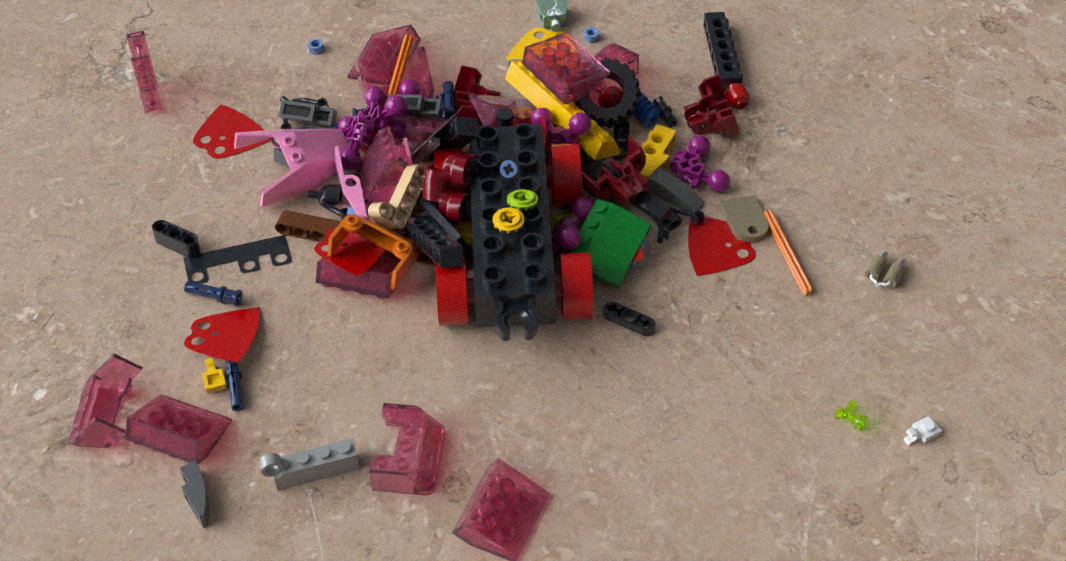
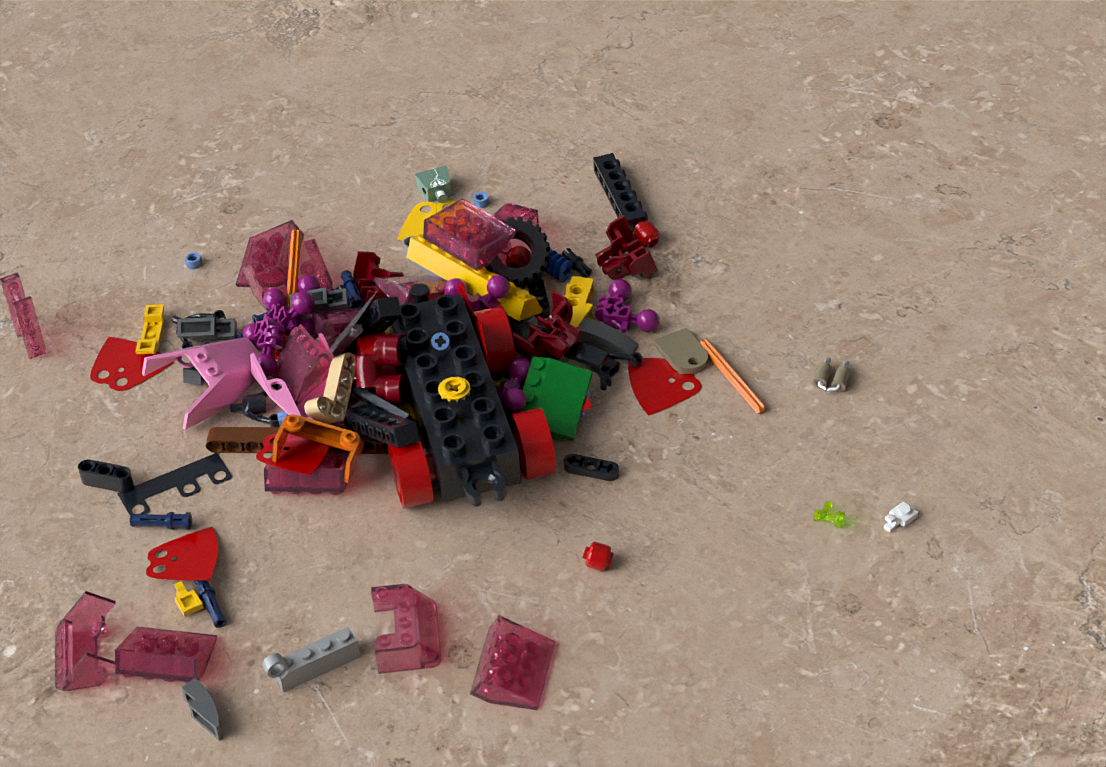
camera: 10 degrees left, 5 degrees down
(260, 106) = (152, 329): none -> yellow slope
(516, 198) = (456, 369): lime gear -> none
(612, 413) = (598, 556): none -> red head

